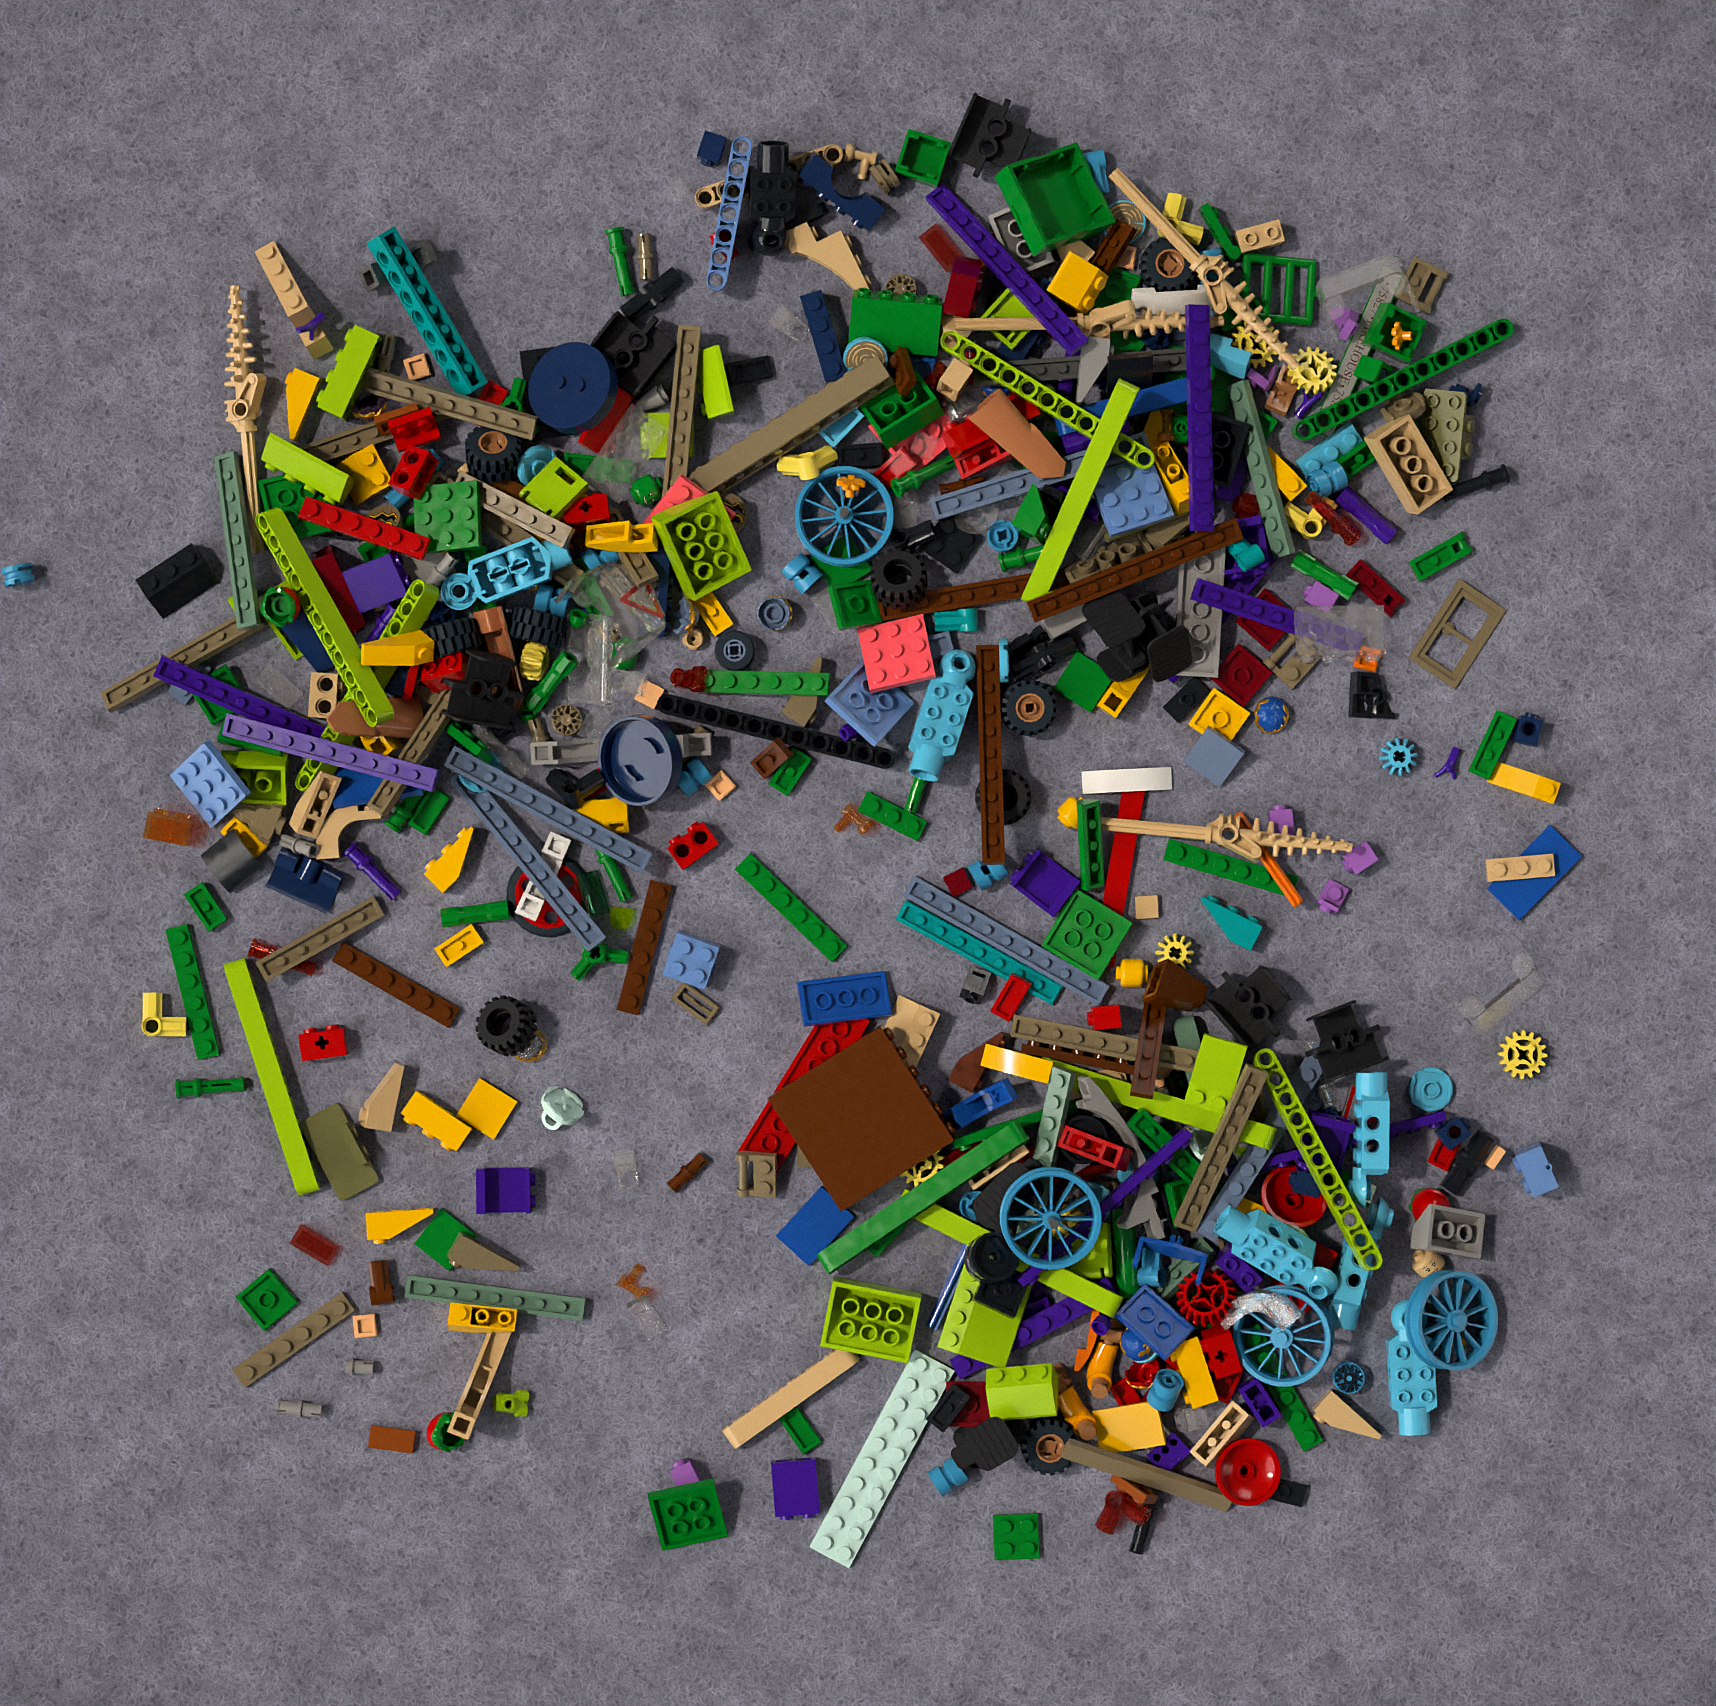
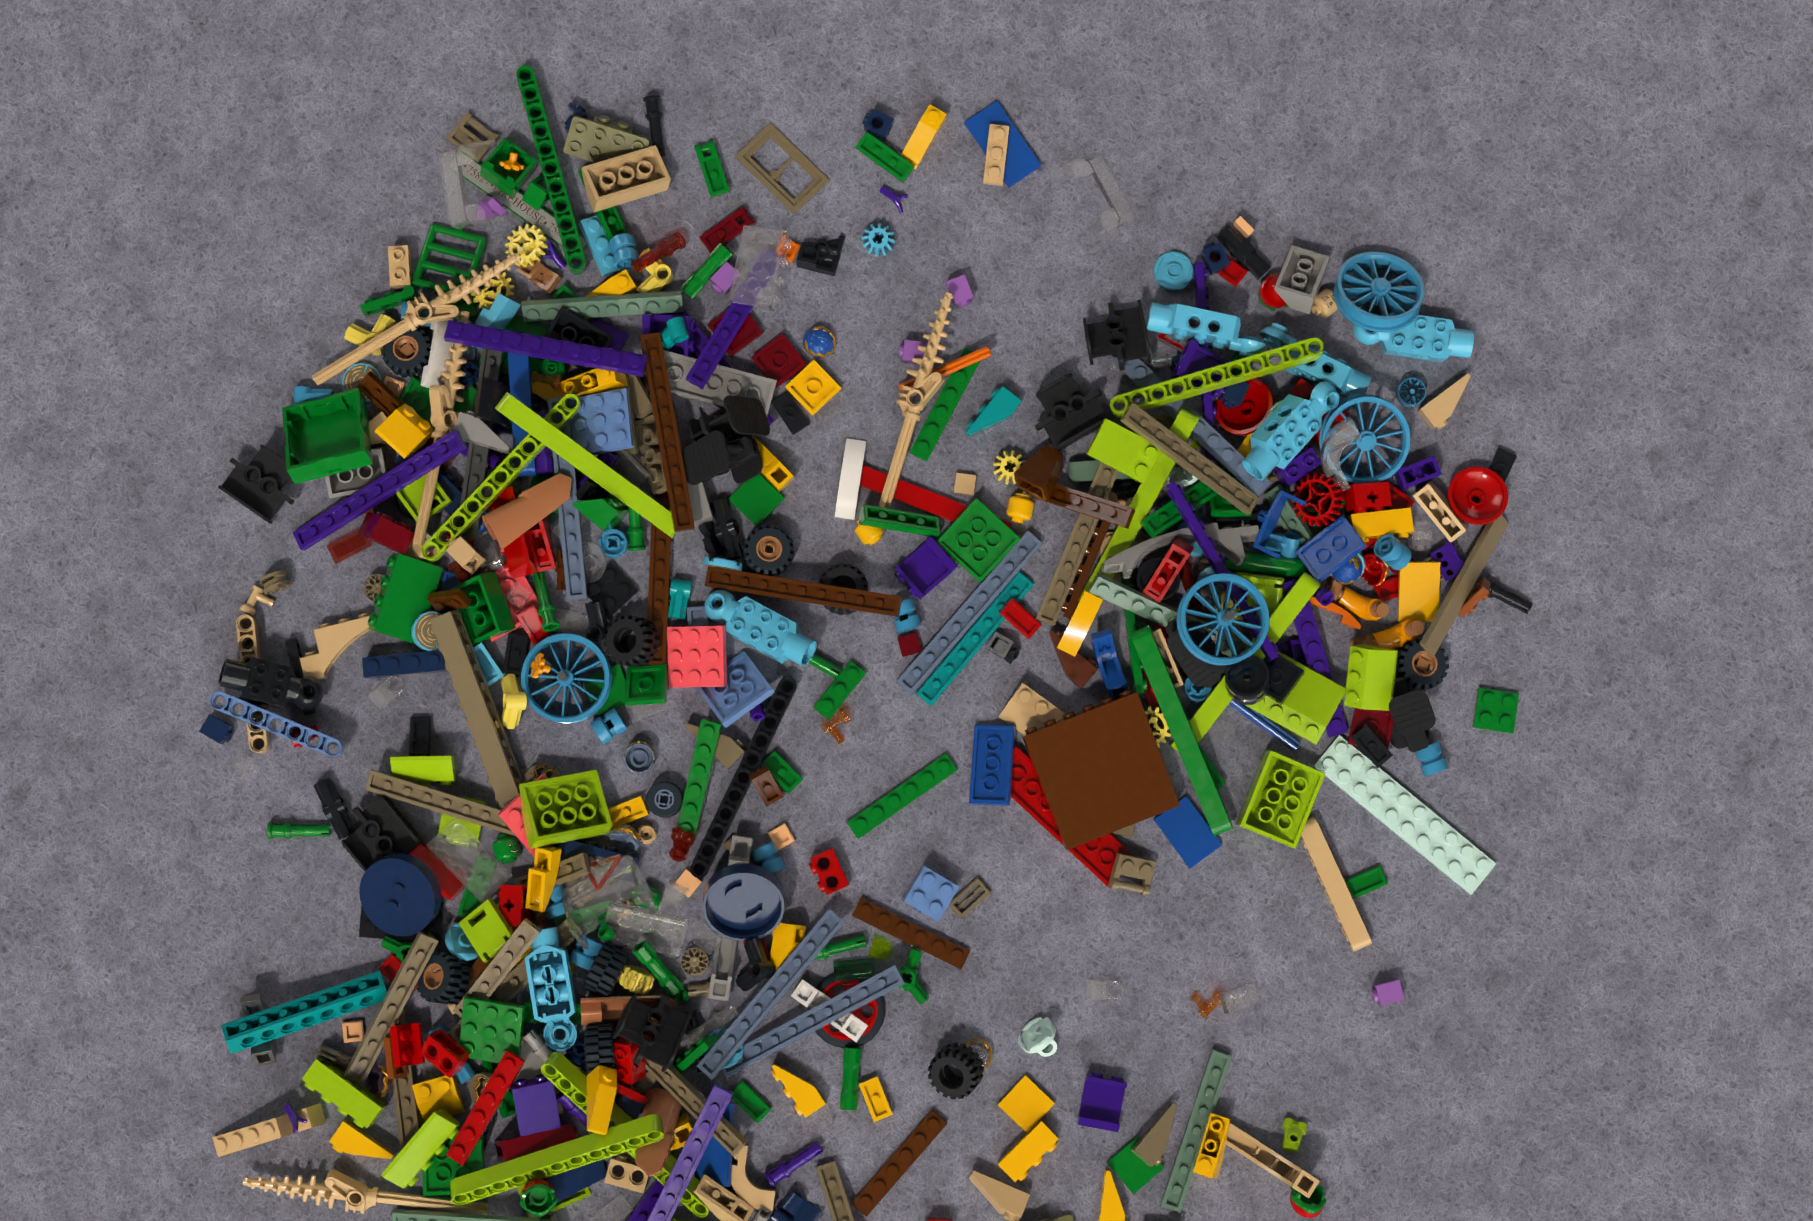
camera: 80 degrees left, 5 degrees down
(403, 813) = (747, 1125): green pin -> none
(645, 256) = (299, 807): dark tan pin -> none
(655, 397) = (426, 825): light grey cone -> none
(687, 1172) = (1118, 935): reddish brown pin -> none
(687, 1514) = (1422, 997): green plate -> none
(795, 1488) = (1416, 896): dark purple panel -> none
(862, 208) = (259, 638): dark blue arch -> none
(922, 158) = (266, 545): green container -> none
(1104, 1017) = (1054, 539): red brick -> none
(1113, 1512) = (1492, 621): clear red piece -> none
(1214, 756) = (845, 398): sand blue tile -> none
(1245, 506) = (631, 326): clear red gear -> none
(1263, 383) = (526, 292): medium lavender plate -> none
(1285, 1397) = (1418, 450): green plate -> none
(1293, 669) = (782, 314): dark tan plate -> none
(1332, 897) = (988, 321): medium lavender bracket -> none
(1366, 515) = (651, 233): dark purple axle -> none
(1402, 405) = (573, 174): dark tan tile -> none
(1529, 1047) = (1162, 193): light yellow gear -> none
(1536, 1169) = (1257, 194): medium blue brick -> none

